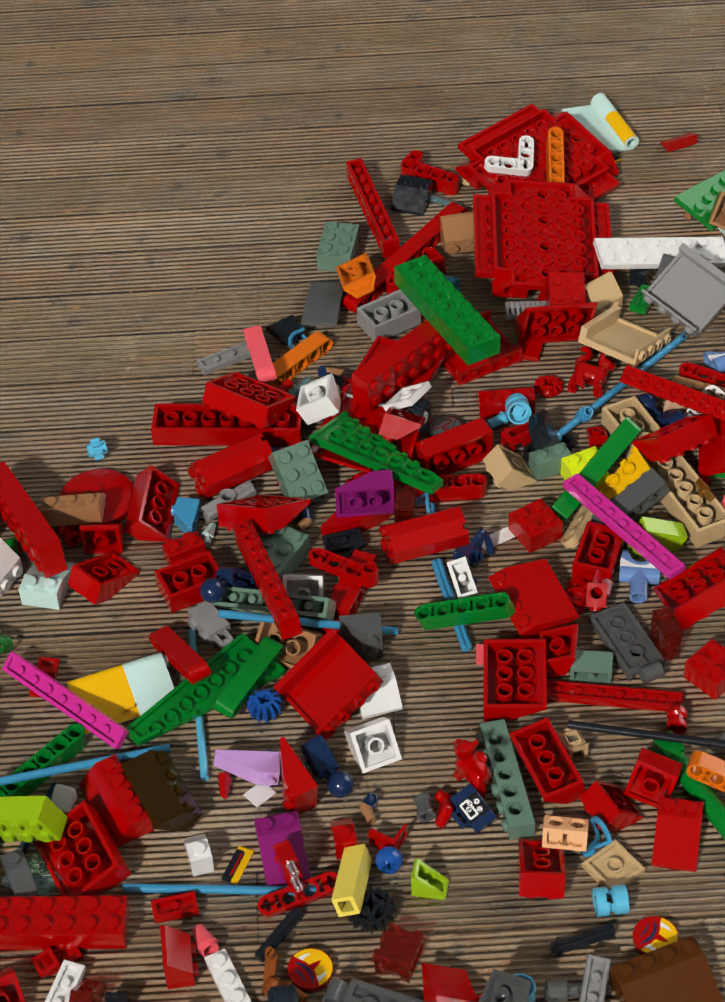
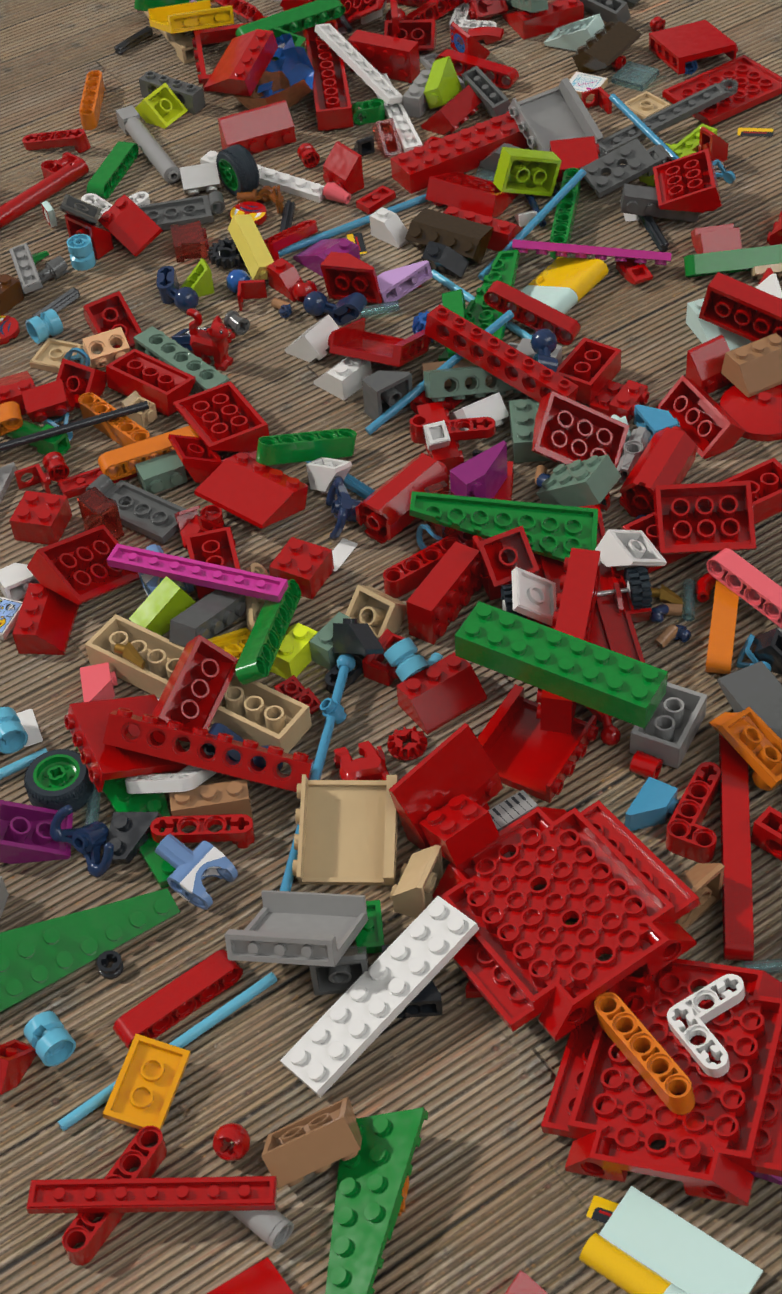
camera: 150 degrees right, 0 degrees up
(101, 577) = (670, 344): red slope -> none
(193, 774) = (445, 259): none -> black slope
(288, 864) = (305, 228): red piece -> none
(345, 806) = (302, 289): none -> red piece
(363, 556) = (436, 435): none -> white slope
(454, 861) = (169, 291): none -> dark blue beam
(593, 681) = (122, 461): none -> orange beam
(604, 744) = (121, 430): none -> orange beam
(698, 717) = (38, 477): none -> red bracket

